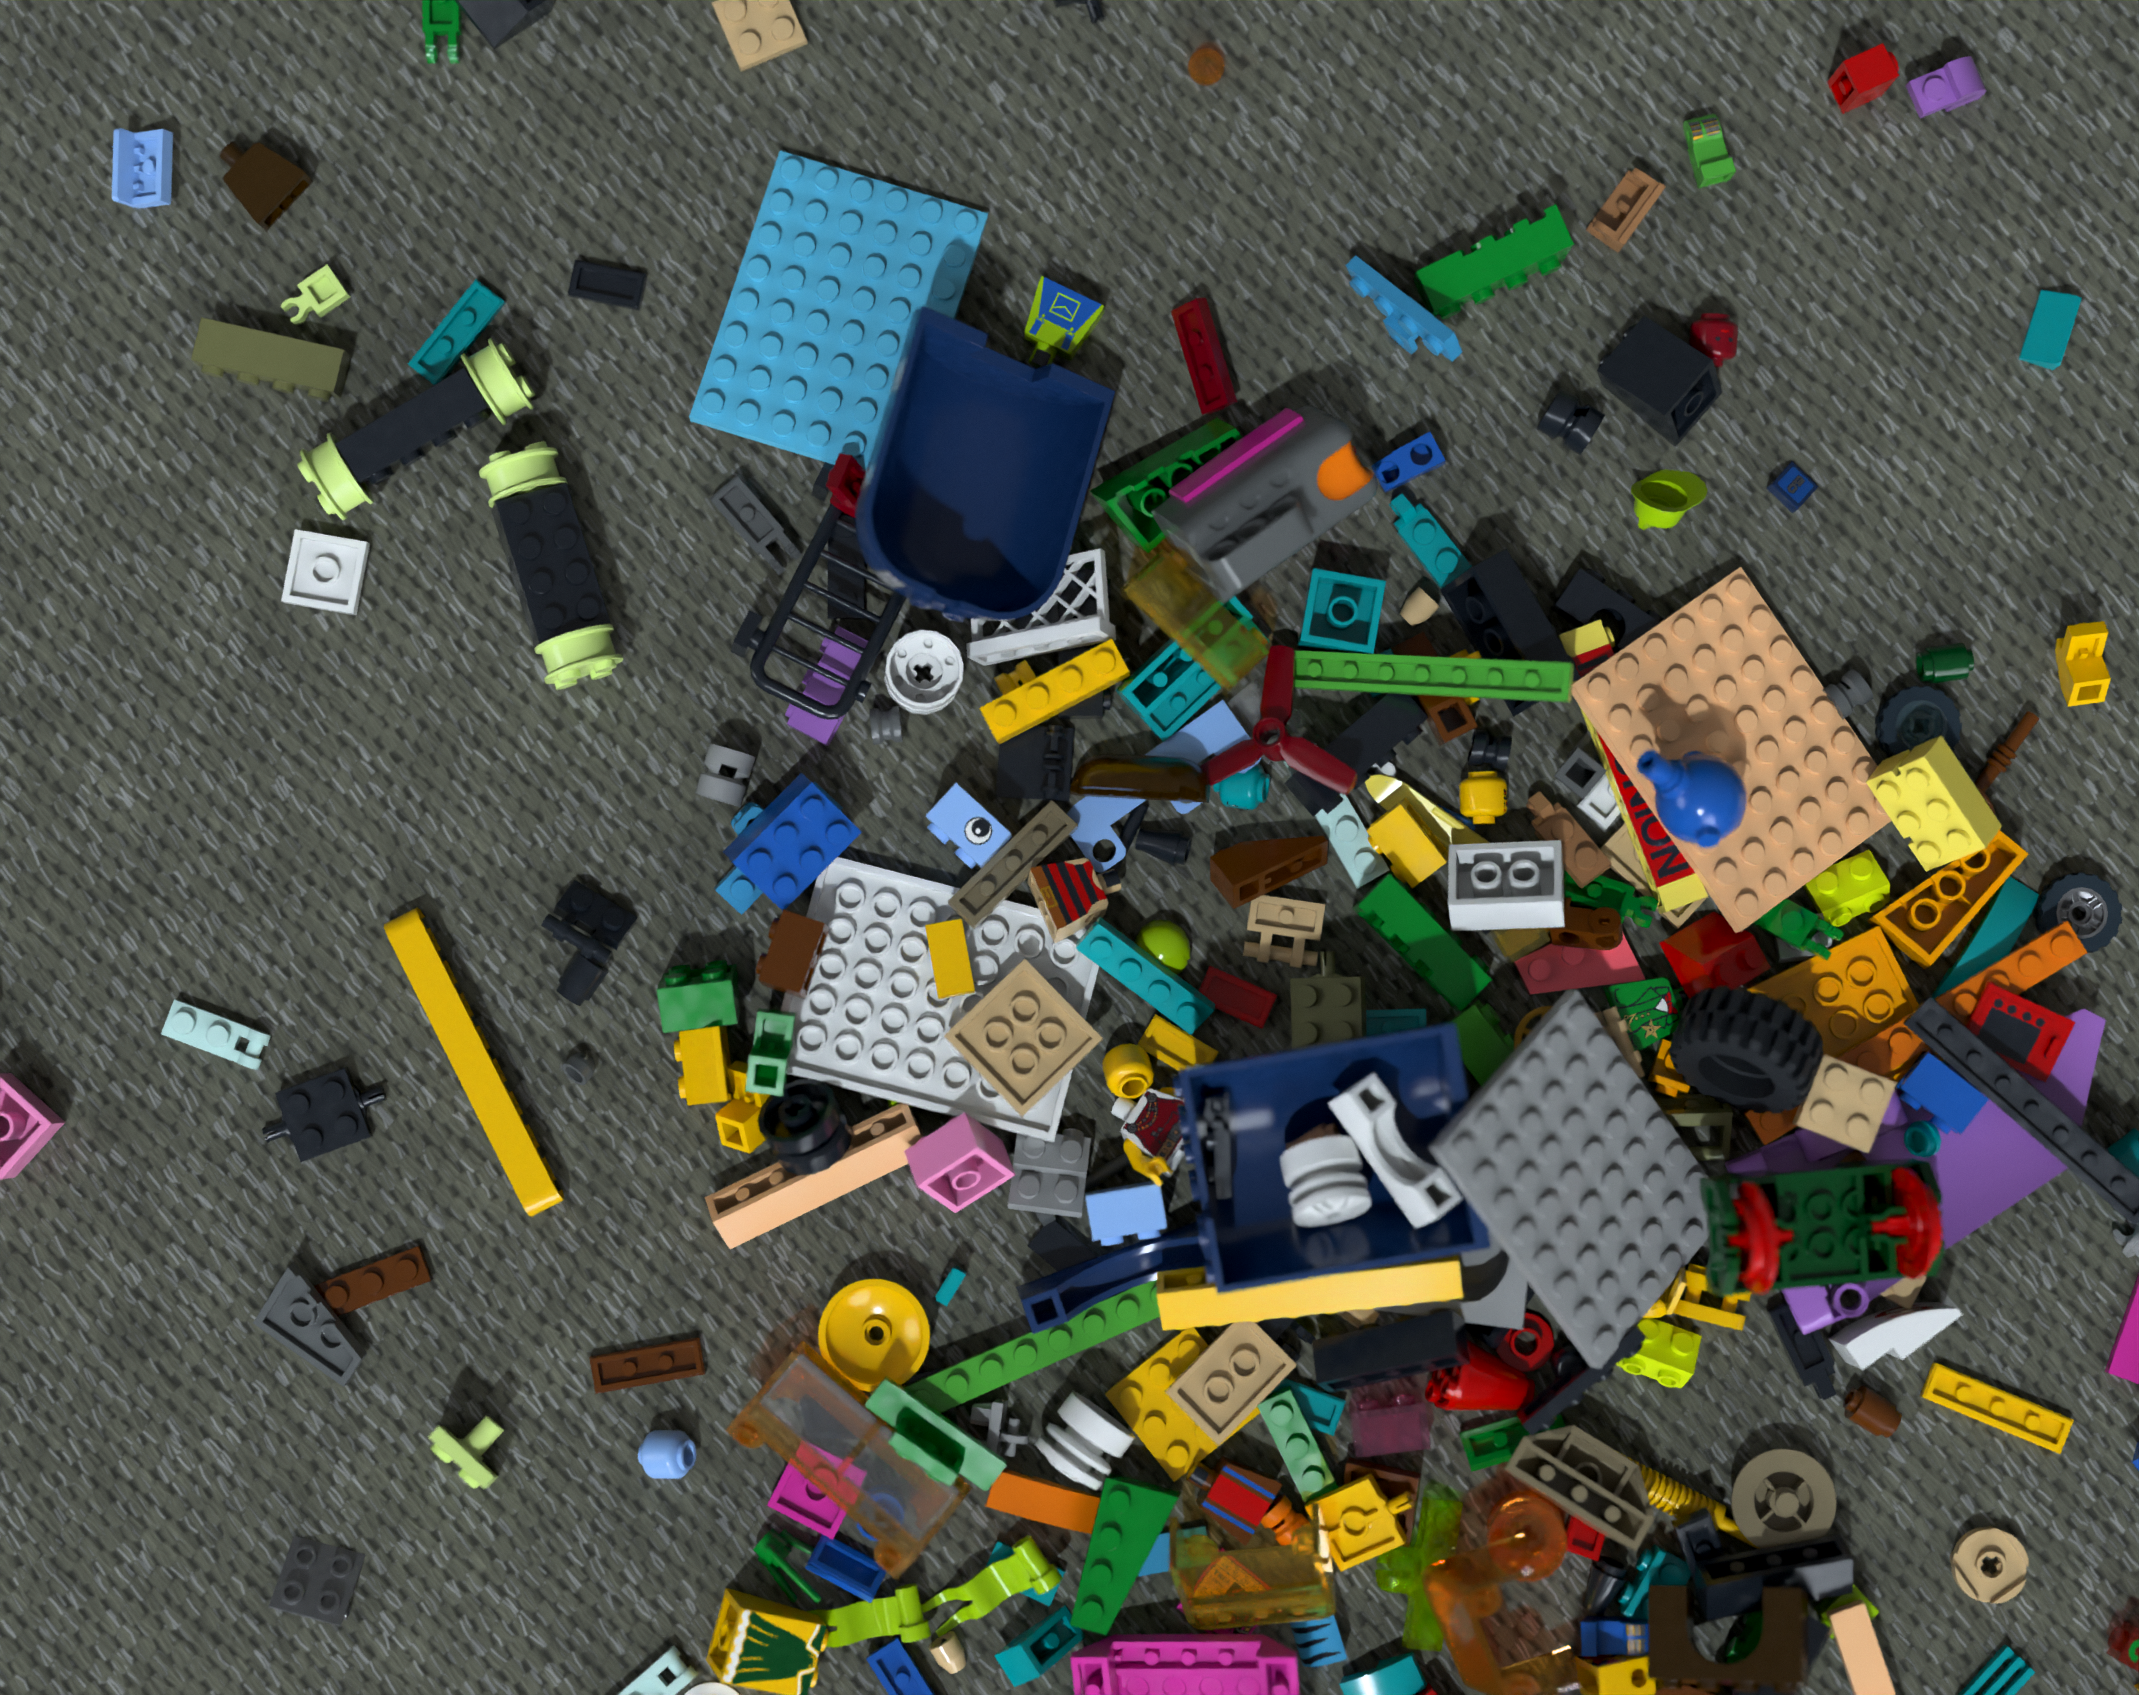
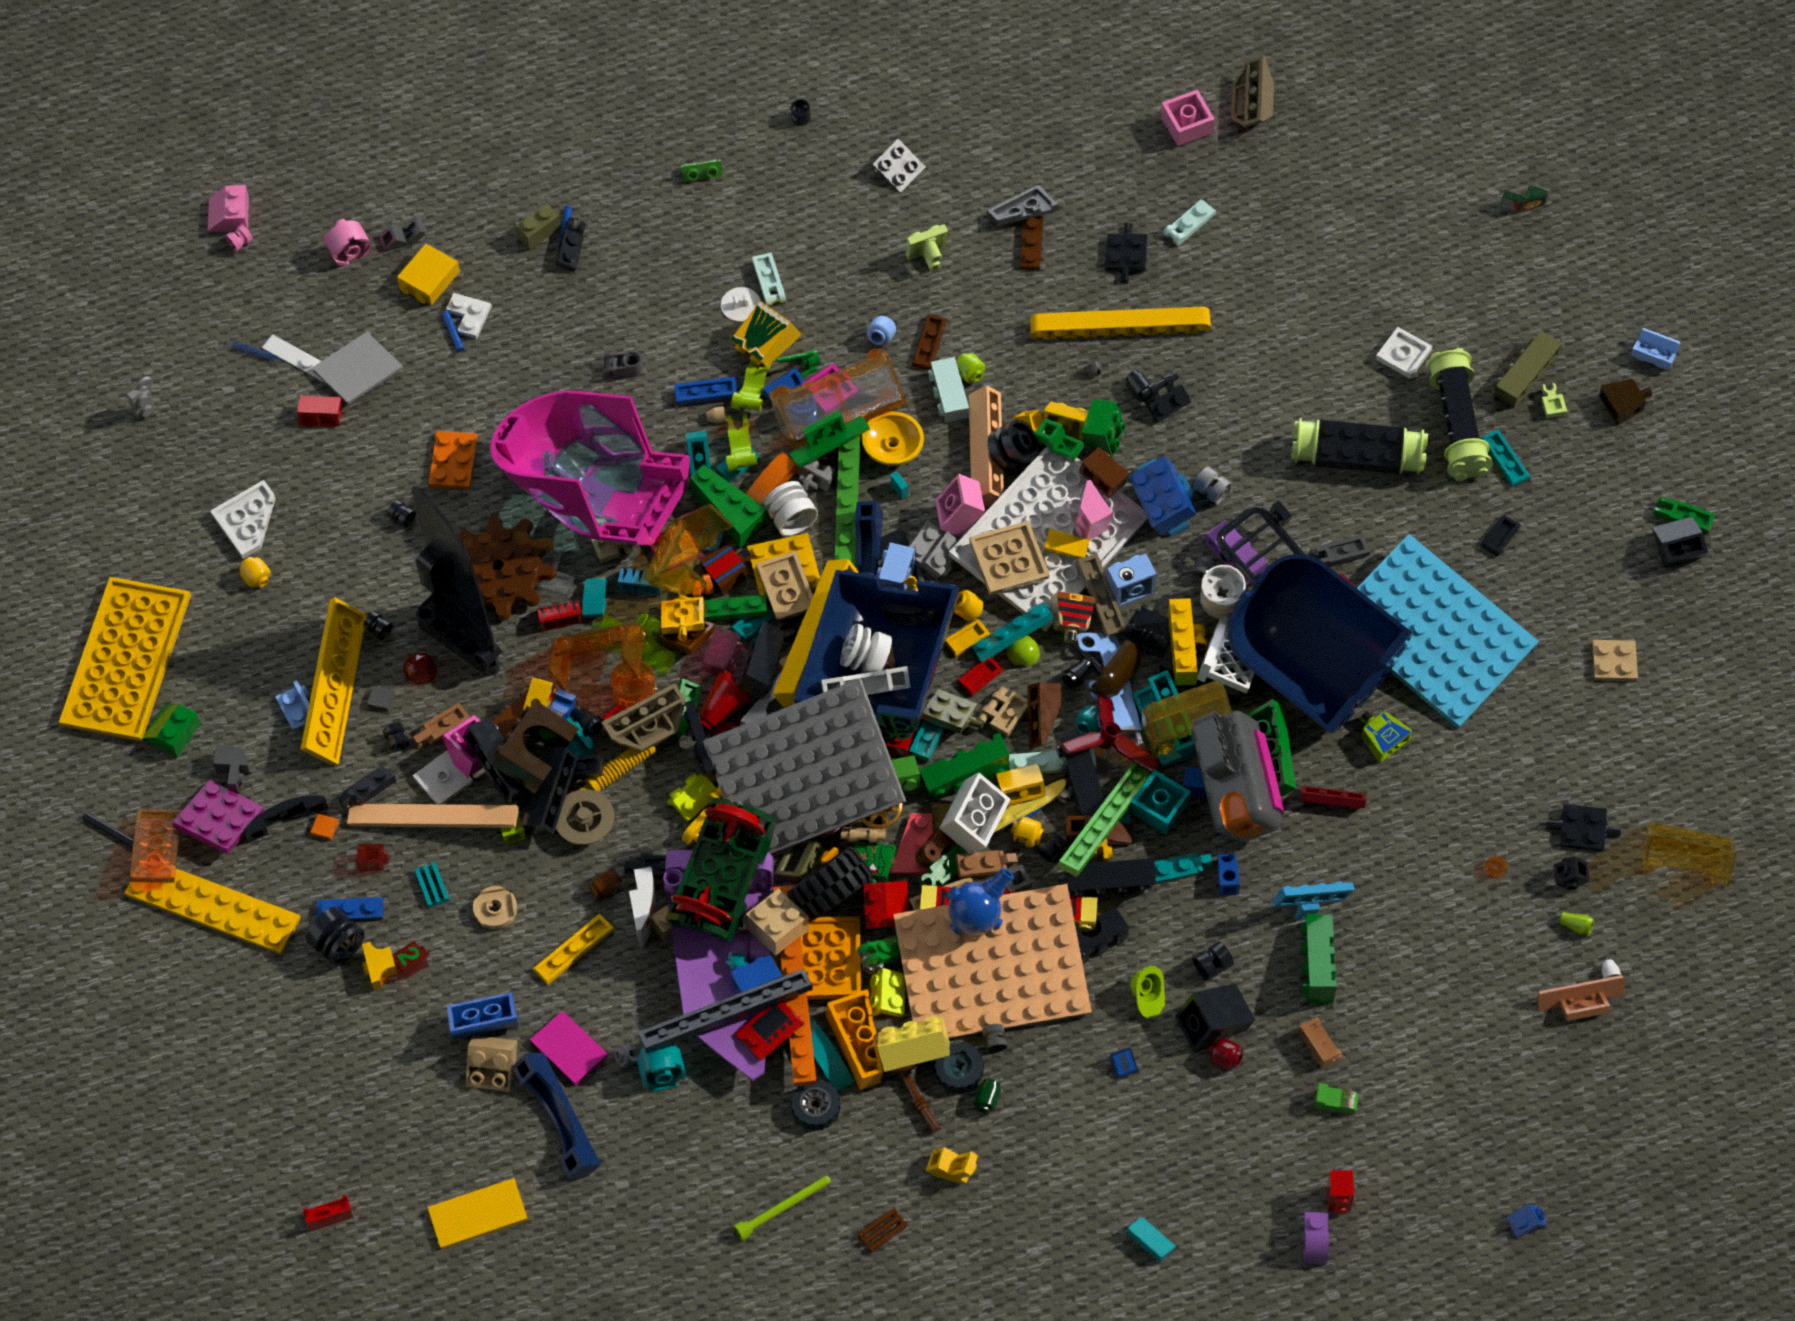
camera: 115 degrees right, 25 degrees down
(674, 1272) = (970, 367): none -> lime head
(732, 1288) = (948, 390): none -> light aqua brick
(887, 939) = (1093, 513): none -> bright pink slope
(1278, 582) = (1194, 782): none -> blue brick
(1418, 607) = (1145, 844): tan hose -> none

